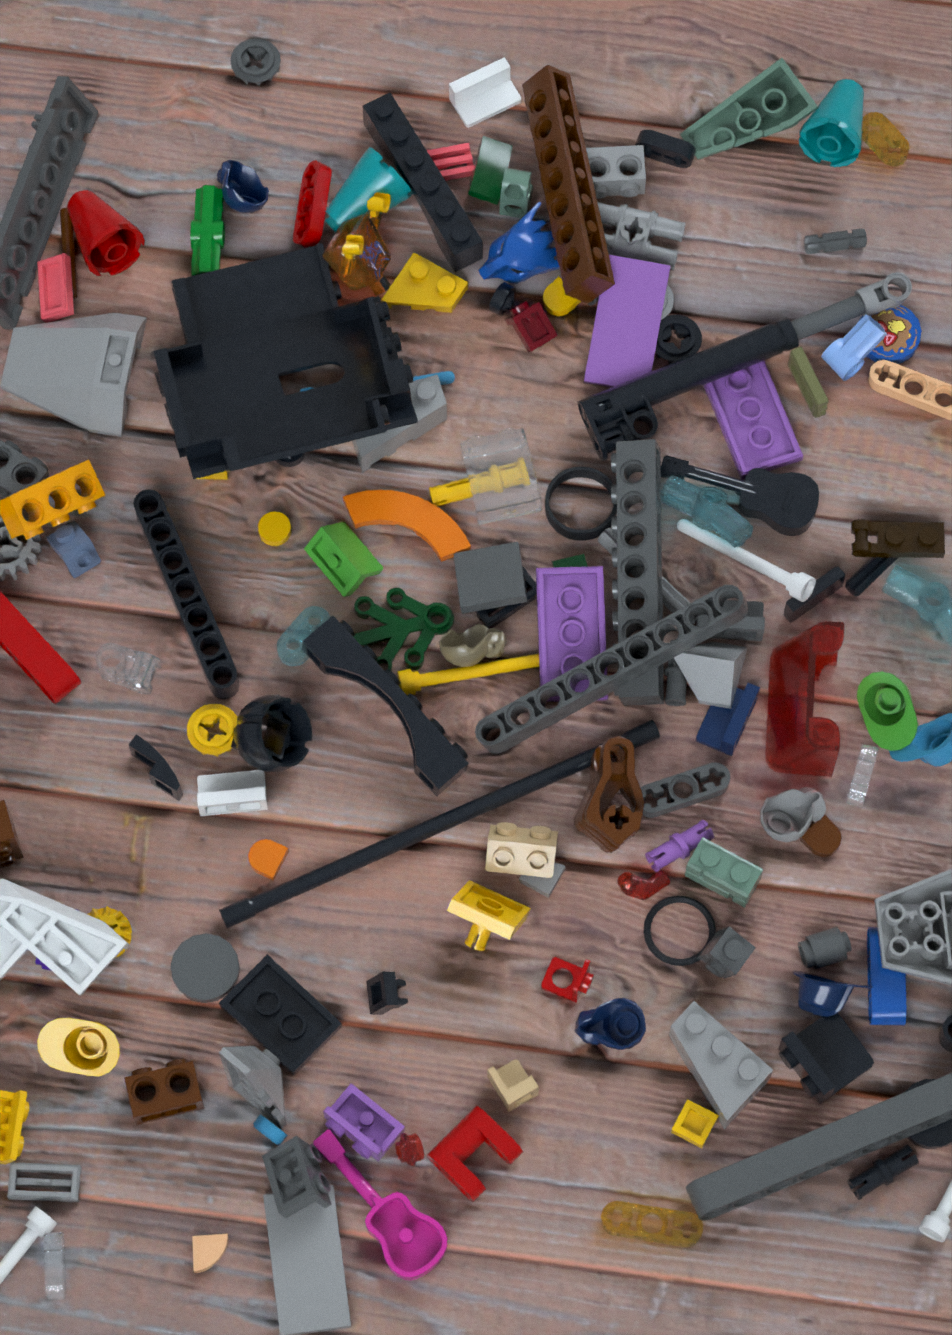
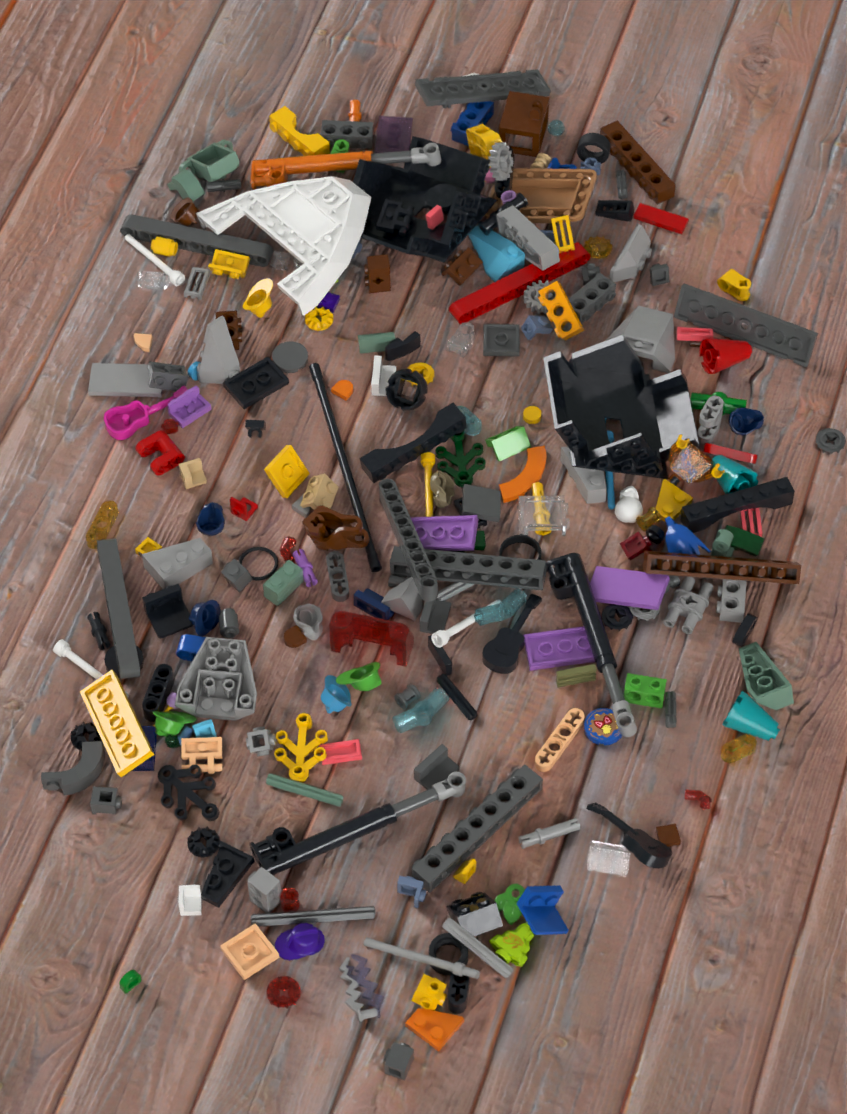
camera: 100 degrees right, 15 degrees down
(108, 606) = (501, 339): none -> dark grey tile
(146, 819) = (375, 342): none -> sand green panel
(193, 606) = (493, 370): black beam -> none
(246, 235) = (710, 419): none -> light grey connector
(448, 349) = (628, 506): none -> white hair
(472, 313) = (648, 518): none -> clear yellow bush
(484, 93) = (796, 546): white panel -> none
(816, 275) = (644, 690): none -> bright green brick
(847, 353) = (592, 699): light blue piece -> none
(862, 775) = (325, 659): clear beam -> none
(898, 539) = (464, 700): dark brown plate -> none
(904, 632) = (407, 696): none -> dark grey bush

